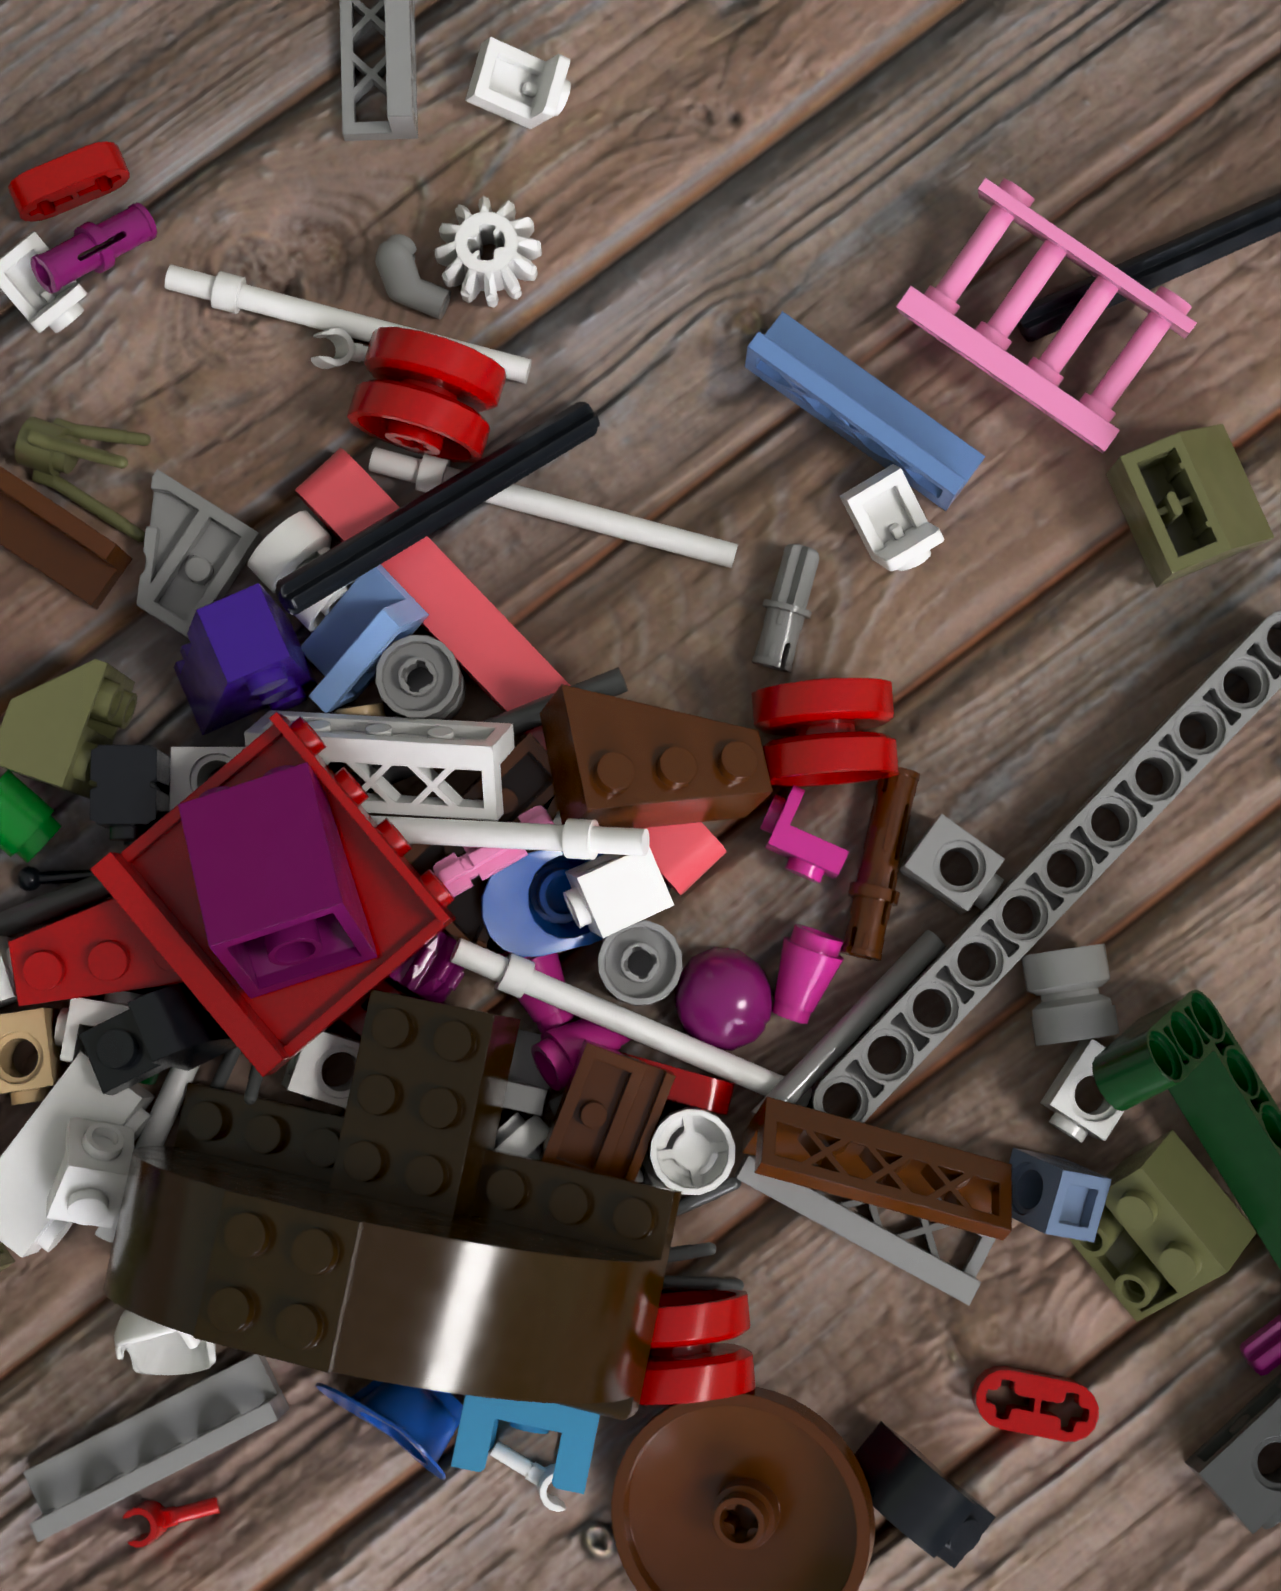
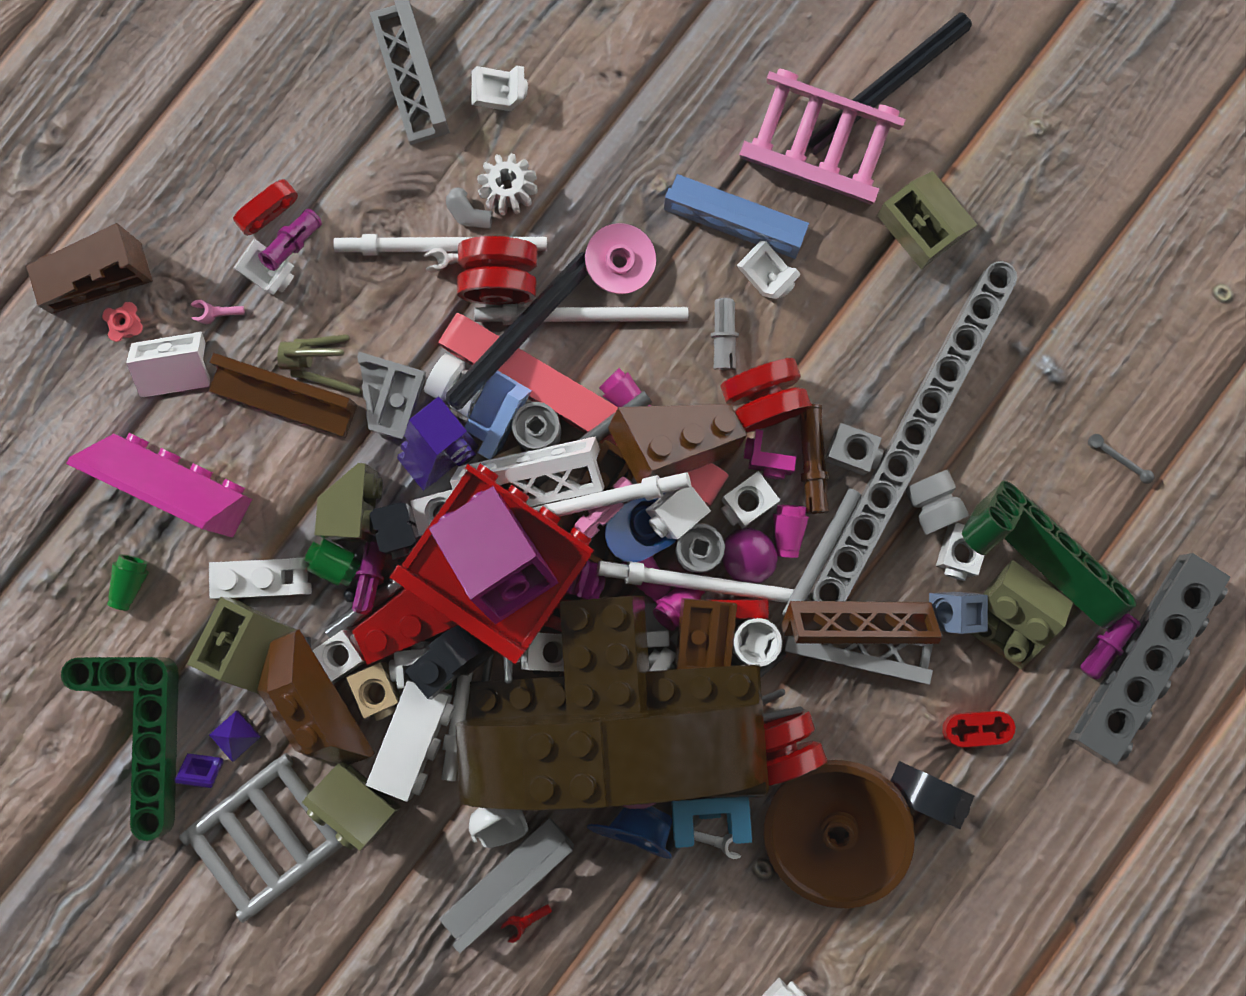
camera: 15 degrees left, 0 degrees up
(65, 860) = (368, 578): none -> magenta axle
(91, 1173) = (434, 744): white bracket -> none
(583, 652) = (619, 388): none -> dark pink cone
(651, 400) = (624, 242): none -> bright pink dish
(769, 883) = (759, 489): none -> white brick

